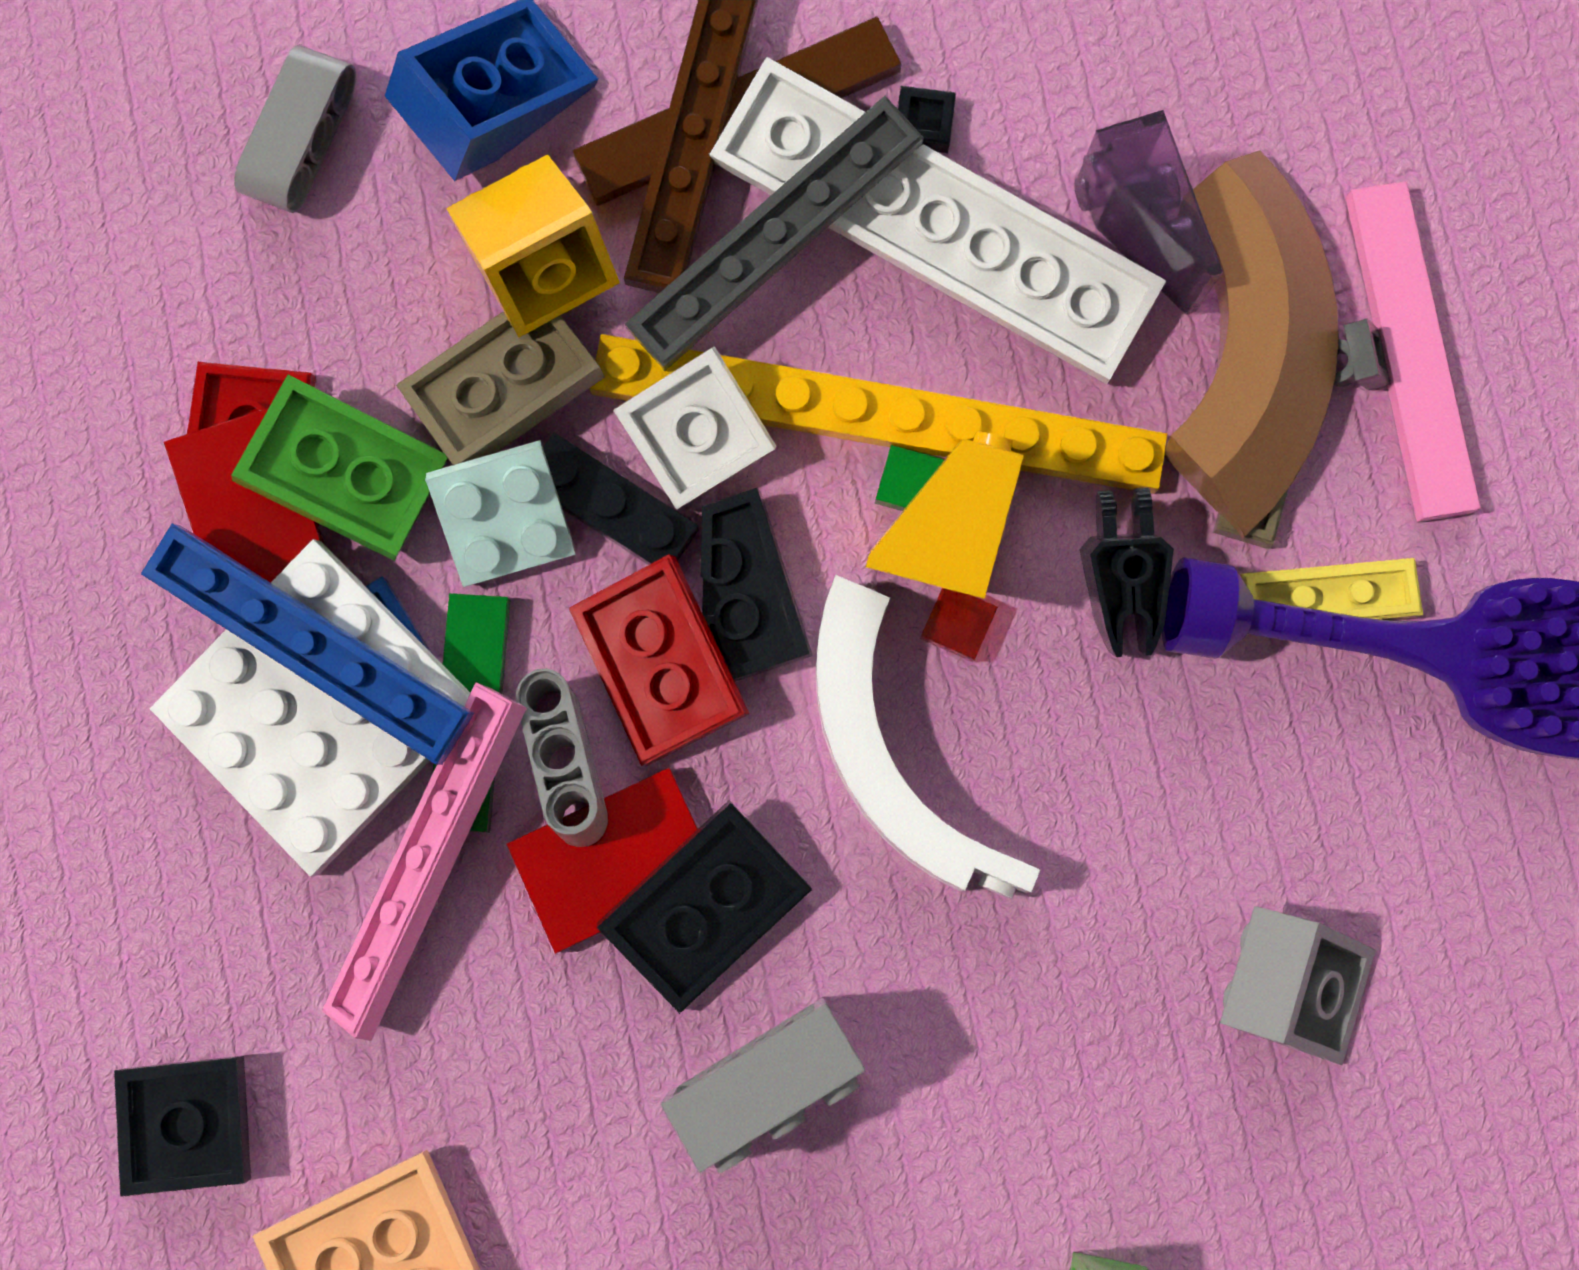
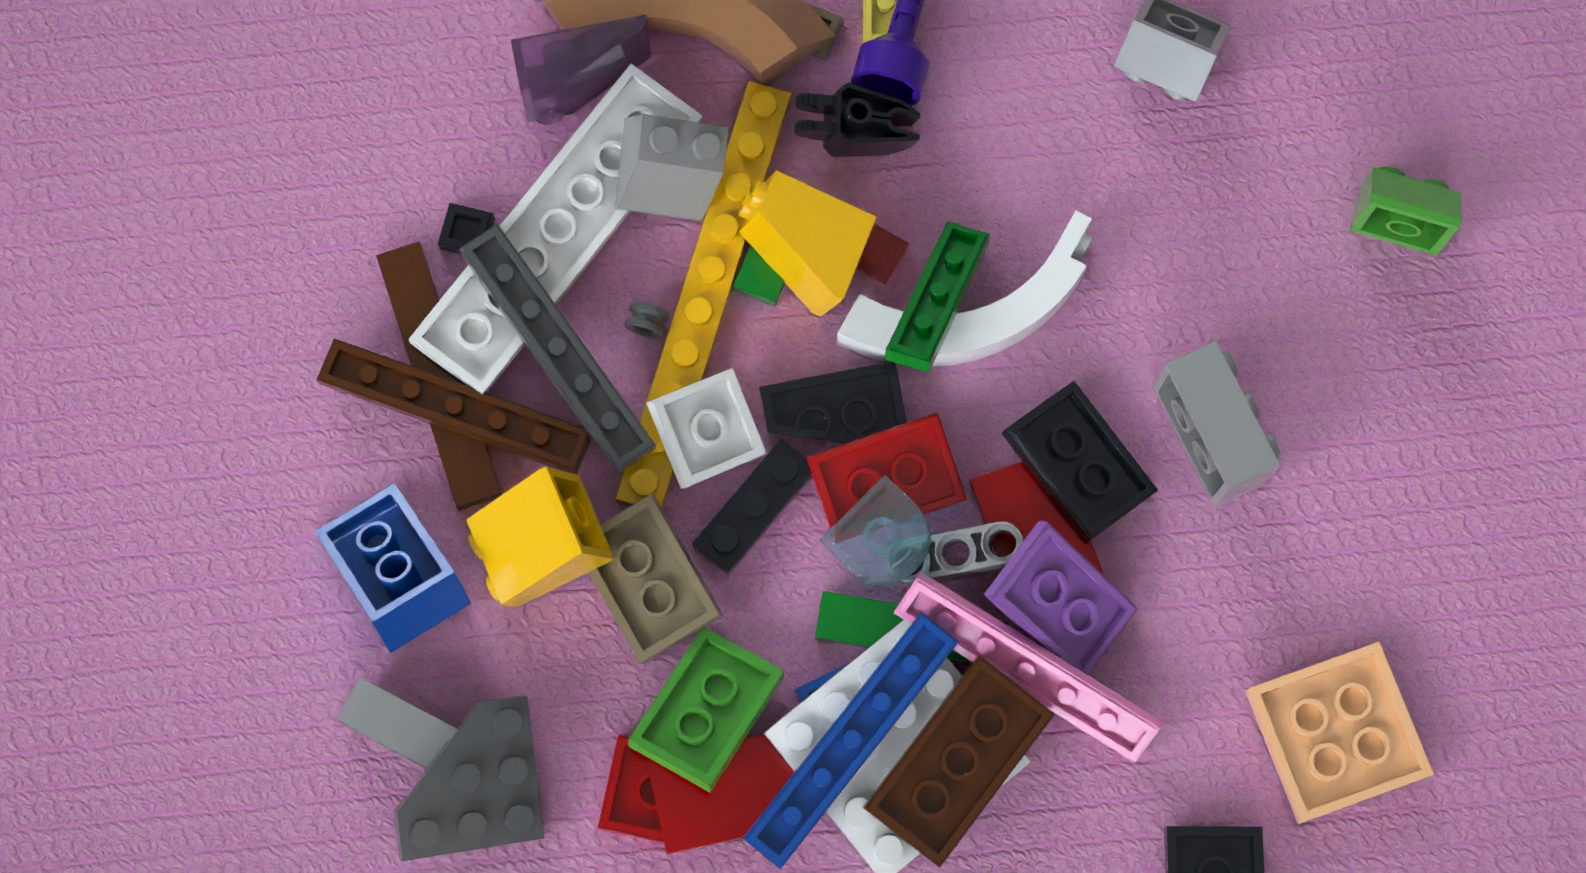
camera: 85 degrees left, 5 degrees down
(225, 210) = (476, 787): none -> dark grey plate
(294, 782) = (958, 761): none -> reddish brown tile
(500, 513) = (757, 585): light aqua plate -> none
(510, 893) = (1060, 598): none -> medium lavender tile
(572, 656) = (880, 536): none -> clear light blue tile
(831, 344) = (647, 320): none -> dark grey bush
(896, 697) = (937, 297): none -> green tile
(1030, 340) = (669, 166): none -> light grey slope

